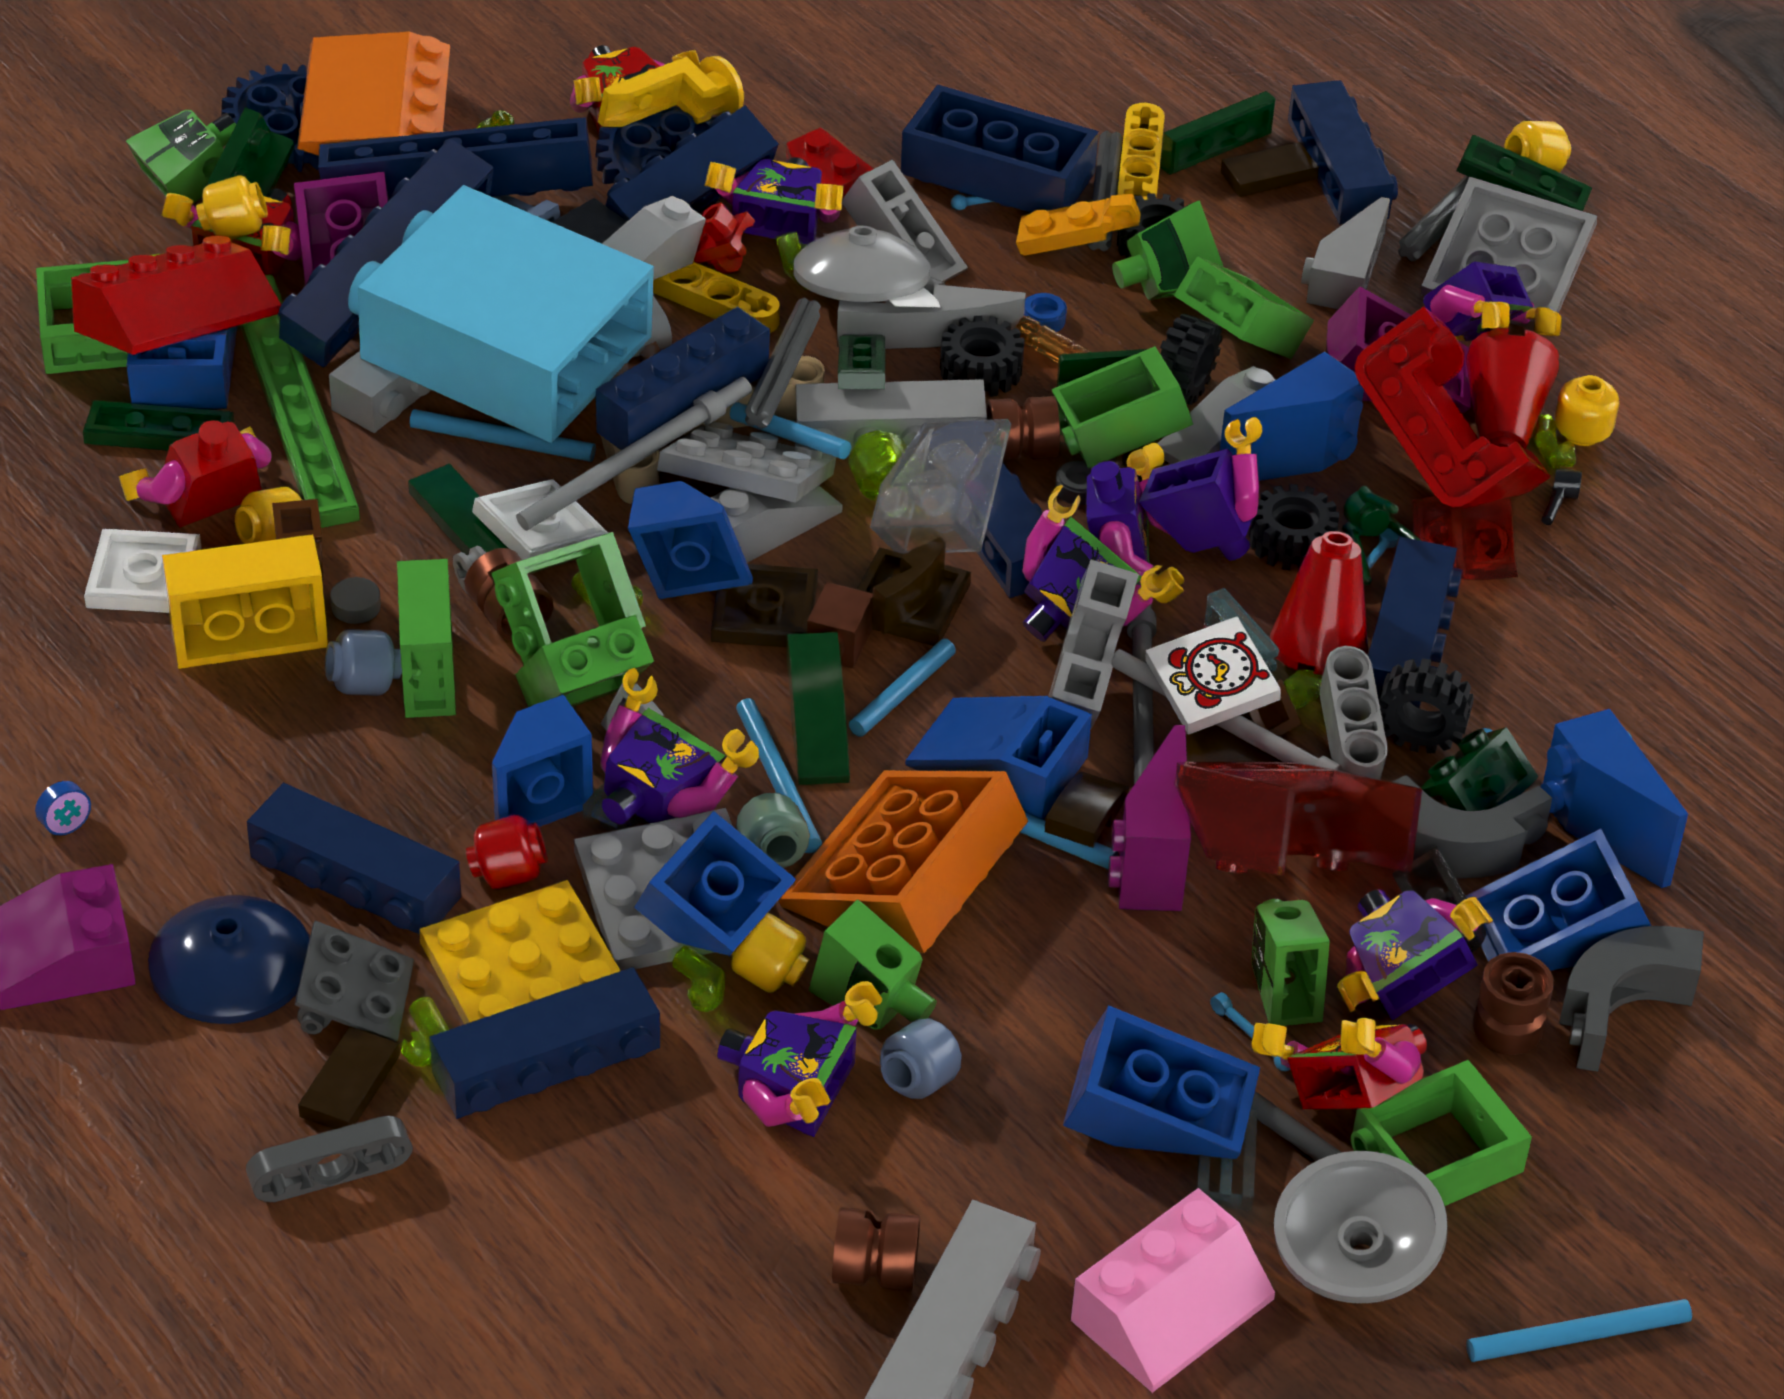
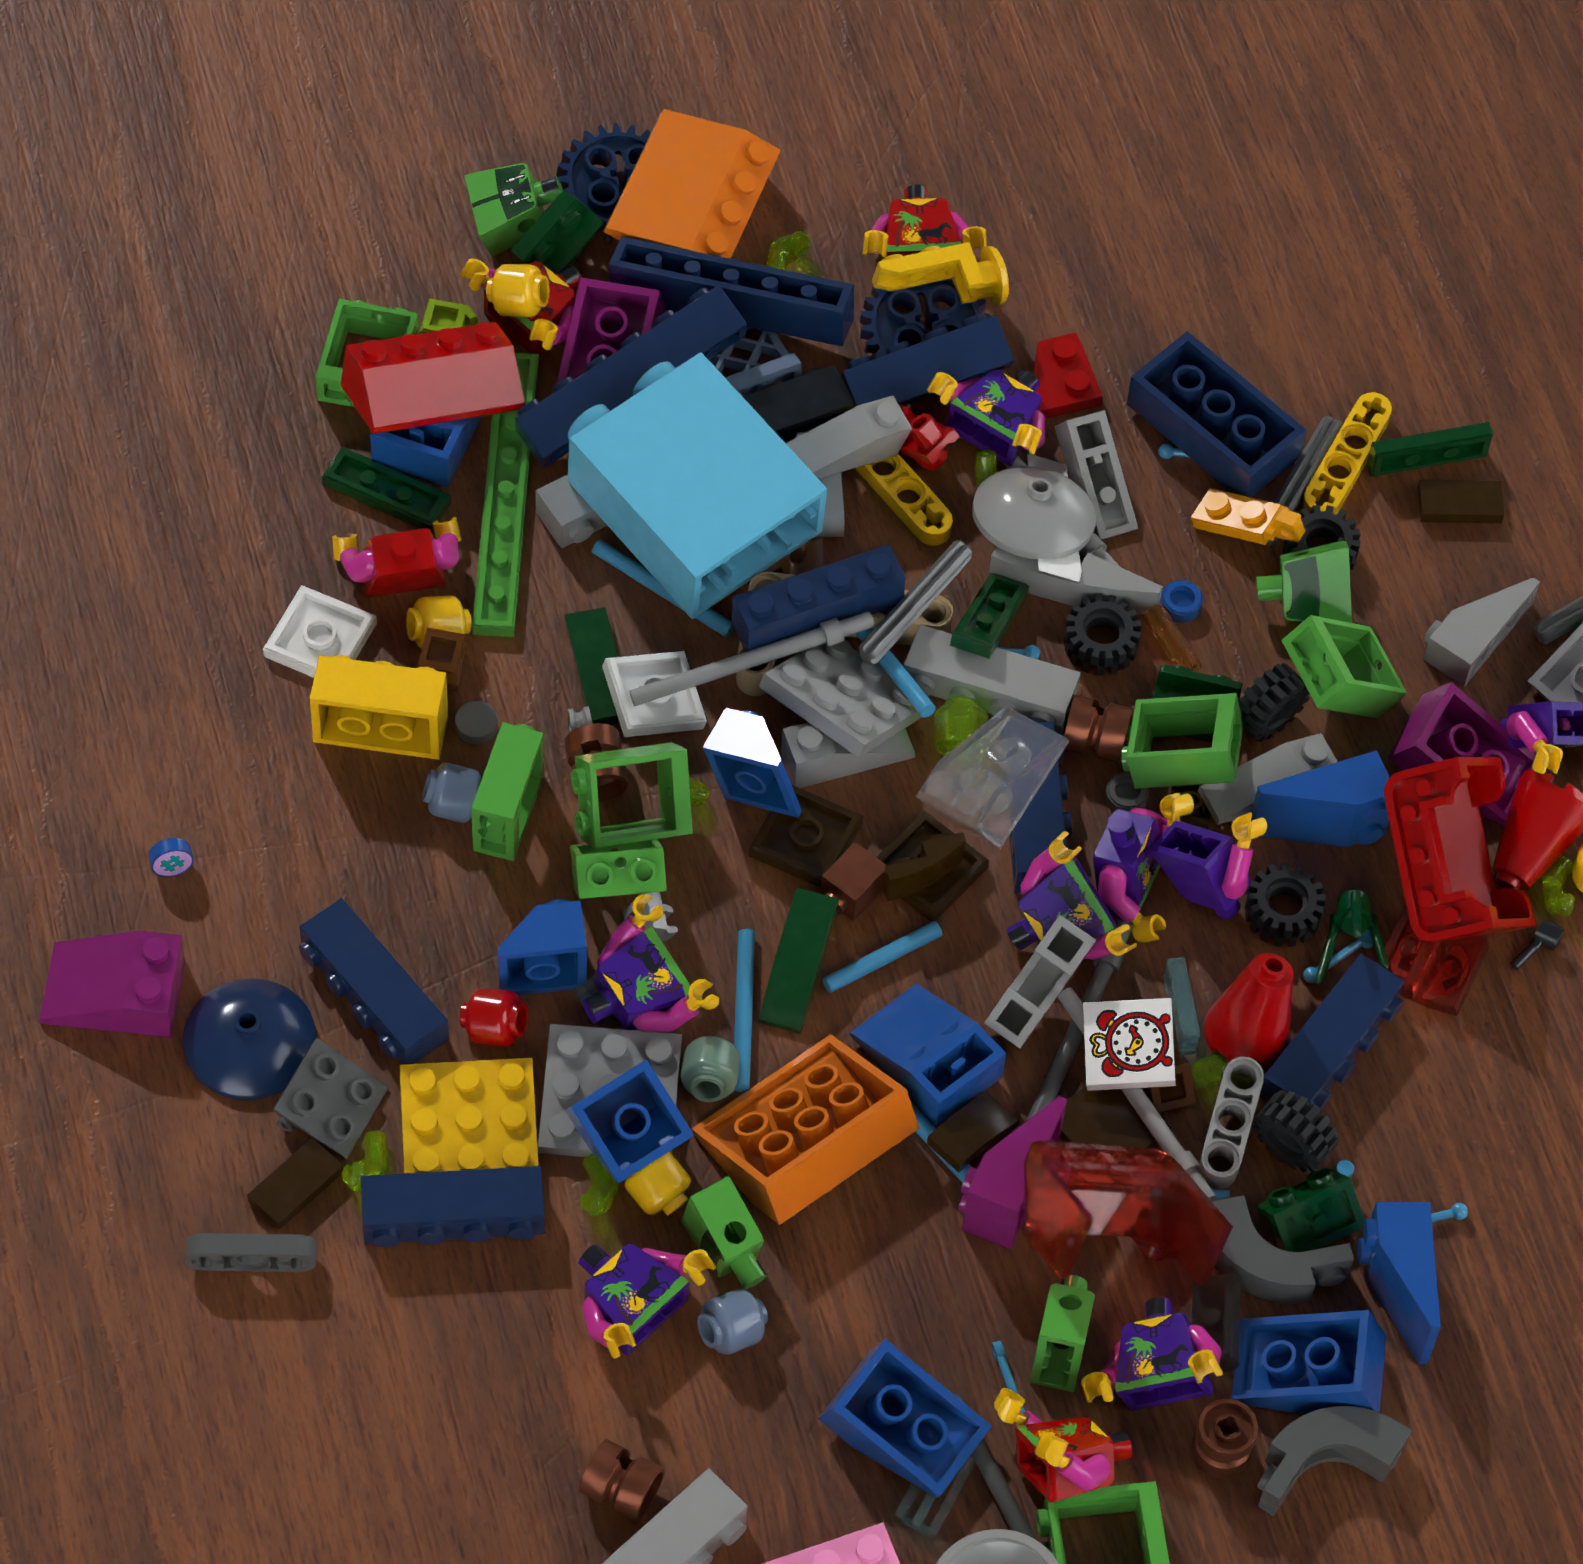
camera: 20 degrees right, 15 degrees up
(1342, 146) = (1532, 504): dark blue brick -> none

